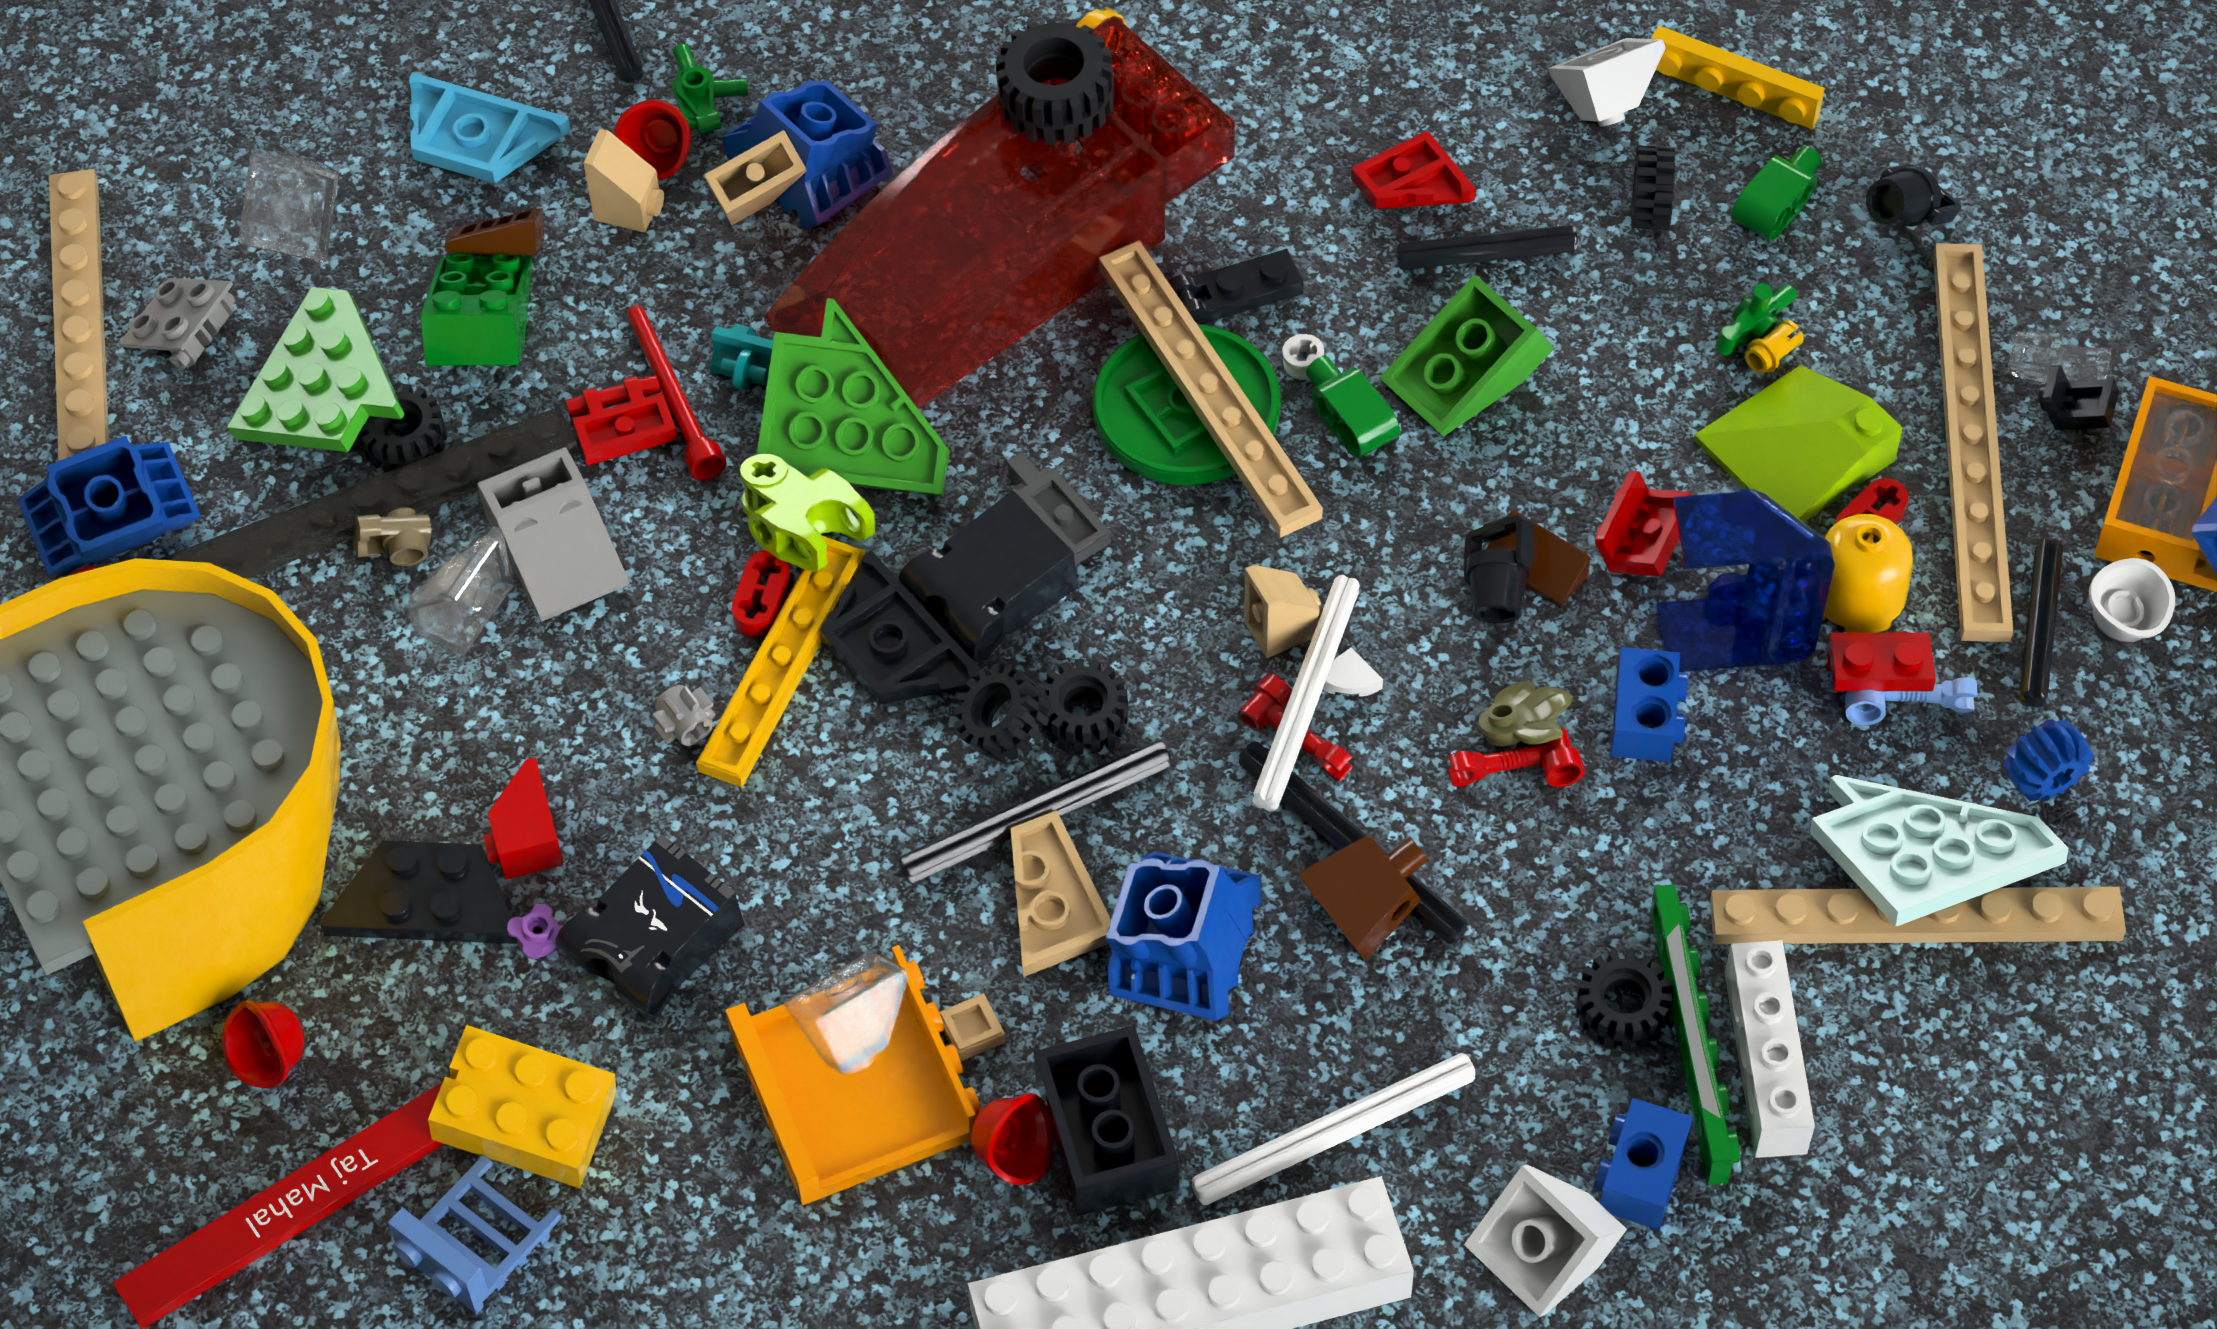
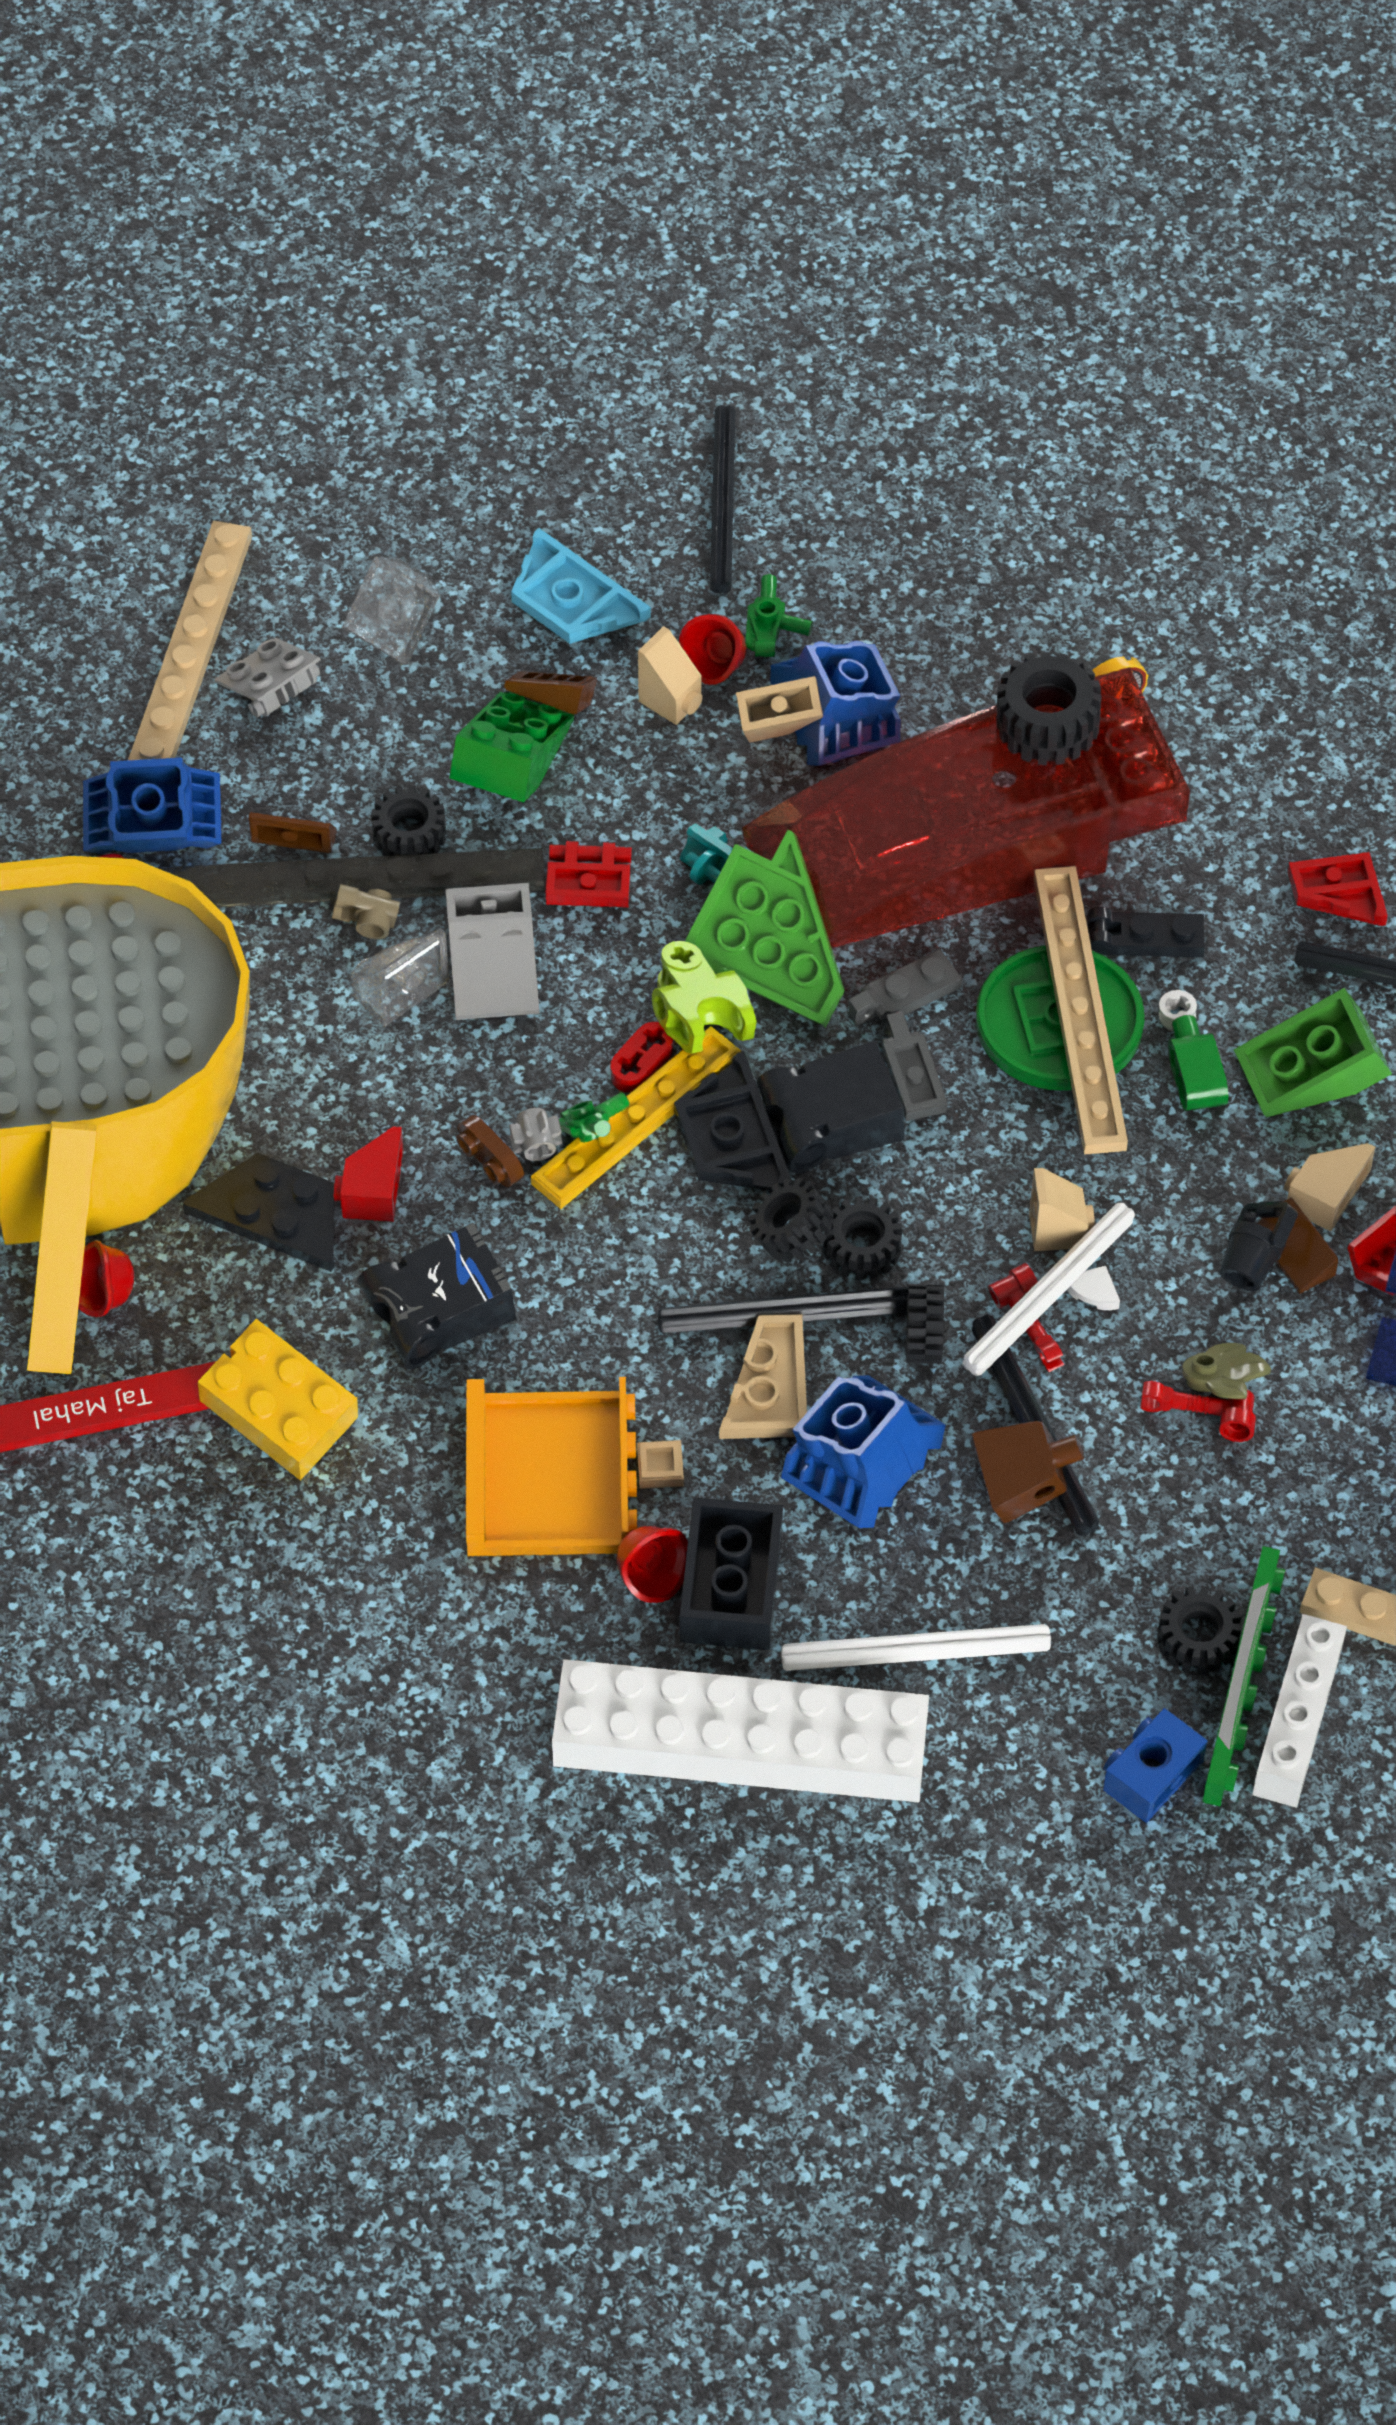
camera: 20 degrees right, 0 degrees up
(215, 1021) = (61, 1247): none -> yellow tile
(275, 479) = (292, 832): none -> reddish brown slope
(318, 380) = (358, 761): wing -> none
(448, 1261) = (173, 1498): medium blue plate -> none
(531, 944) = (344, 1277): medium lavender plate -> none
(651, 755) = (497, 1158): none -> reddish brown plate
(702, 454) = (642, 927): red piece -> none
(739, 681) = (591, 1121): none -> green piece
(851, 1011) = (565, 1416): clear slope -> none
(1011, 427) = (906, 988): none -> dark grey hinge
(1194, 774) = (925, 1323): none -> black tyre
(1541, 481) = (1329, 1182): none -> tan slope
(1544, 1238) = (1045, 1793): white slope -> none
(1646, 704) = (1325, 1395): blue brick -> none

